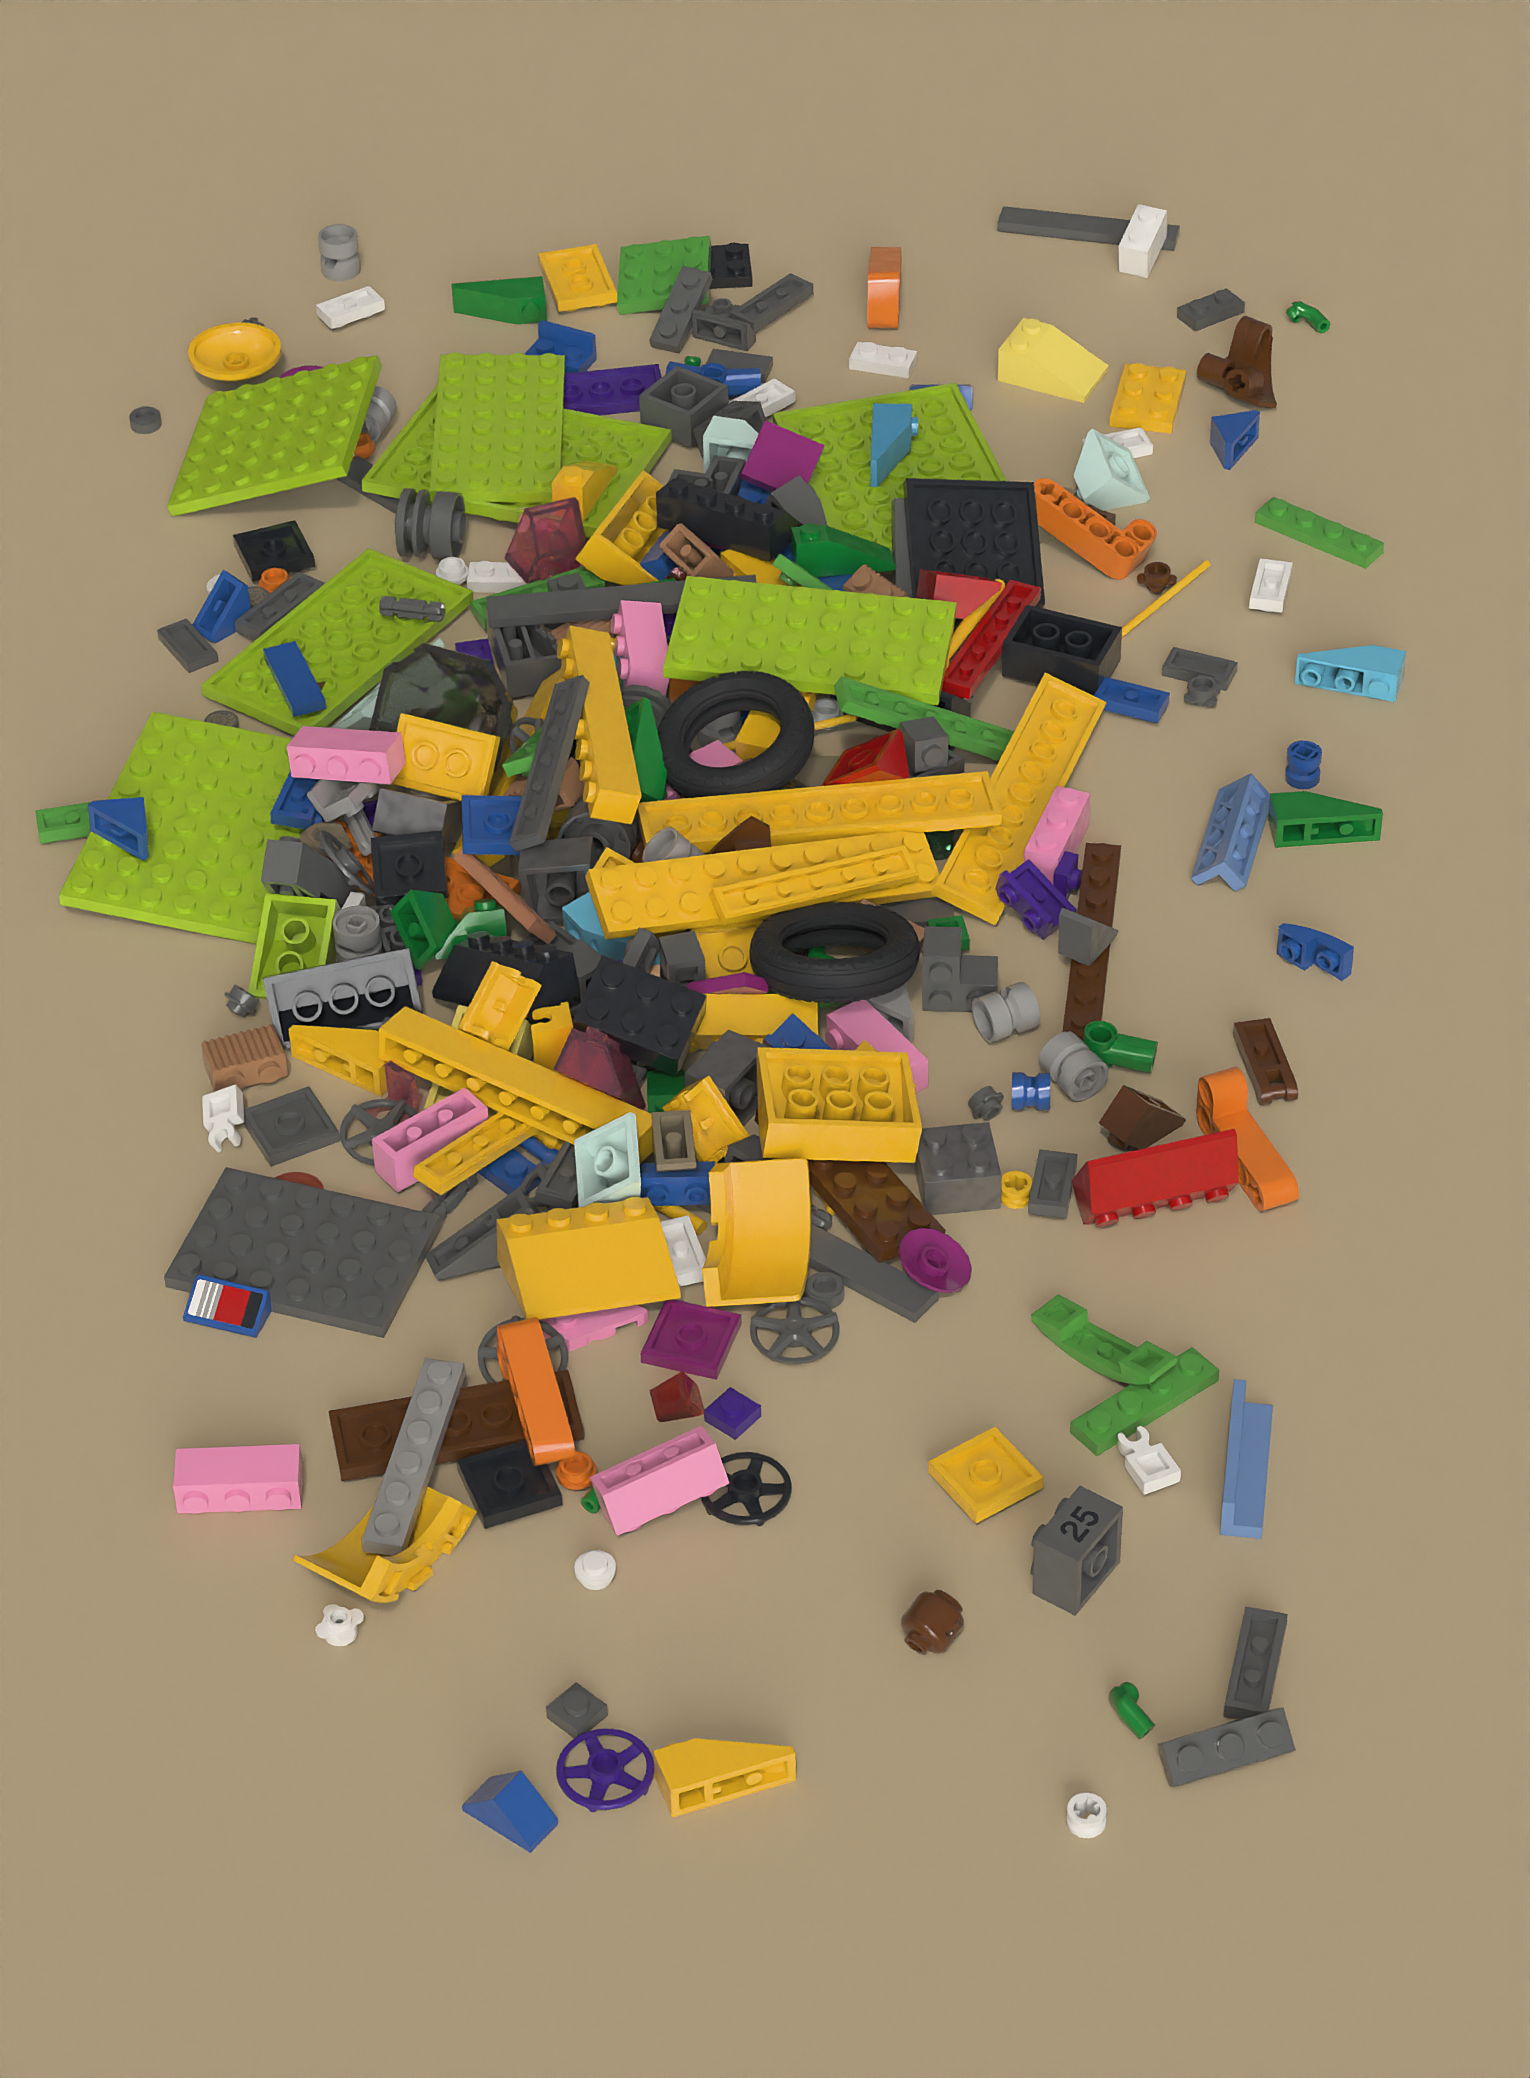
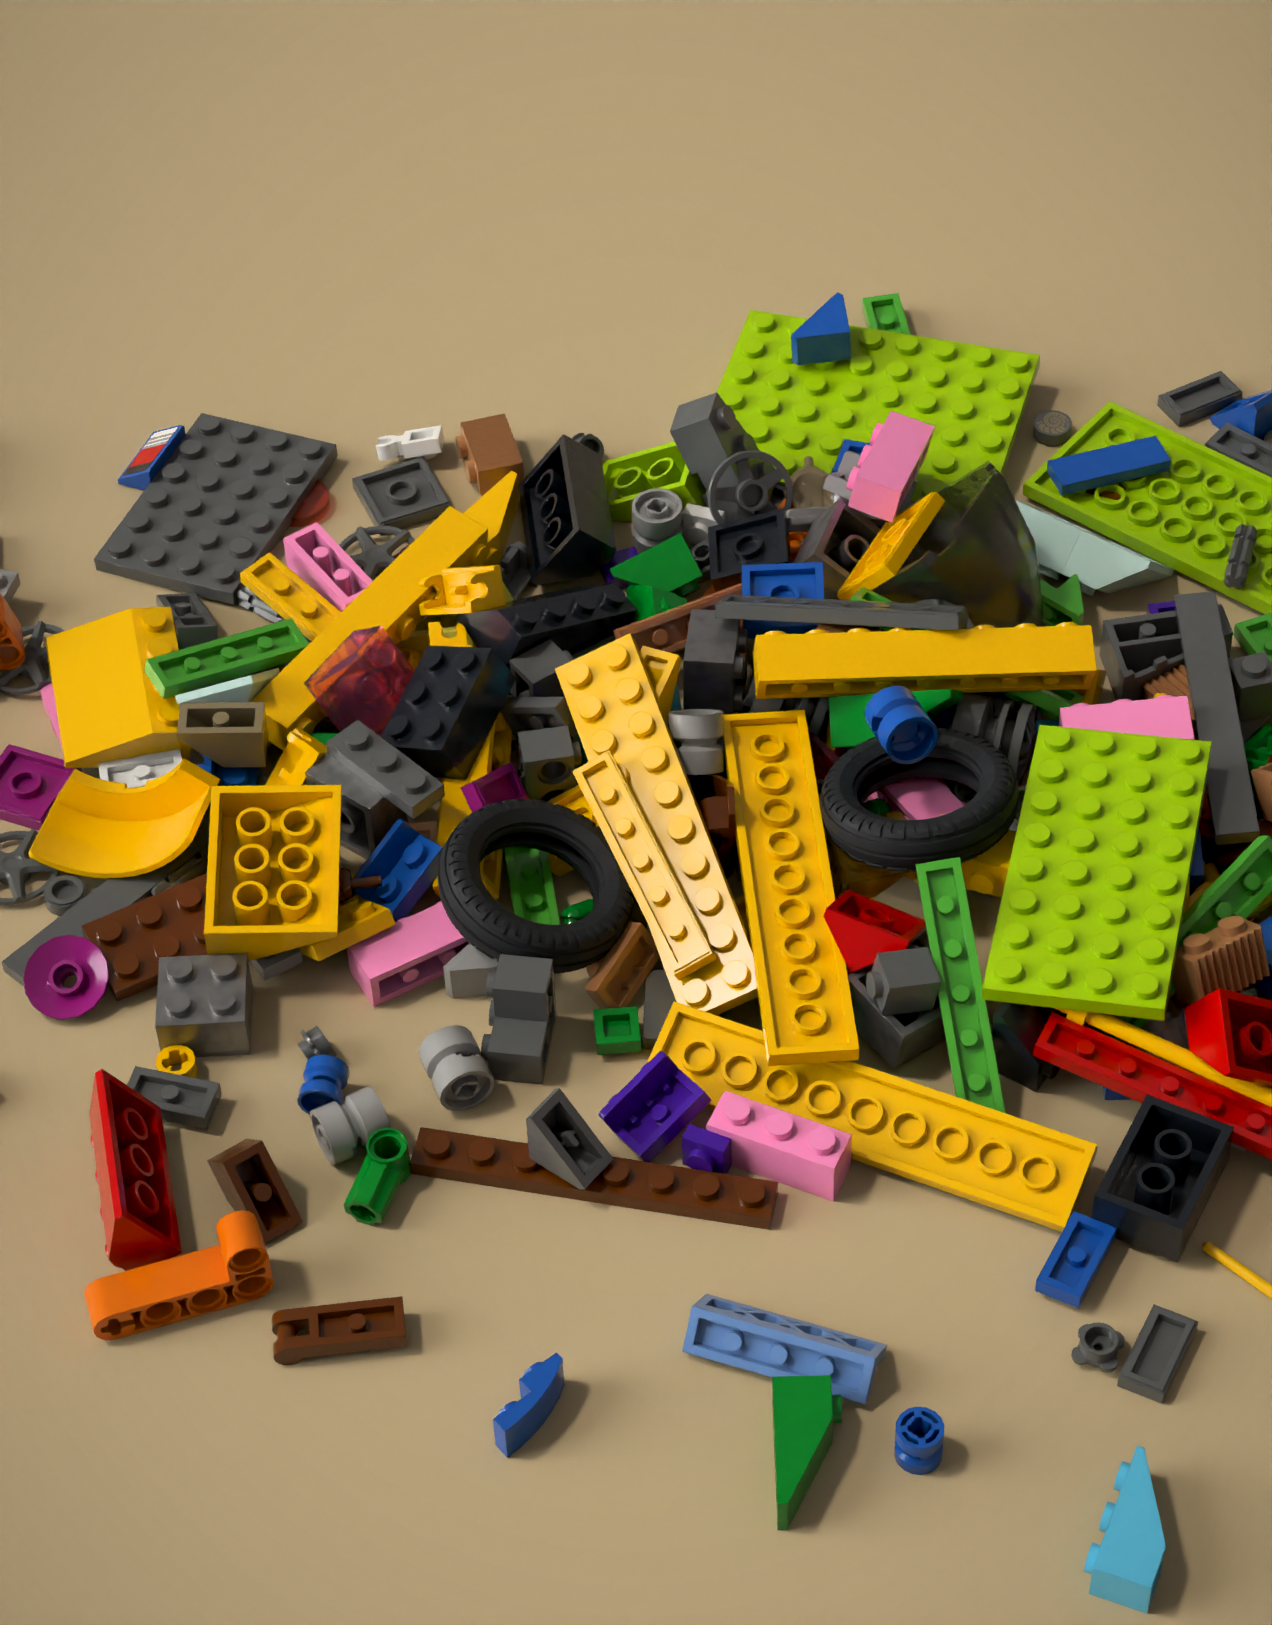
camera: 95 degrees right, 5 degrees up
(570, 1168) = (225, 658): none -> bright green plate
(682, 724) = (901, 725): none -> blue wheel
(724, 1034) = (385, 769): none -> dark grey plate

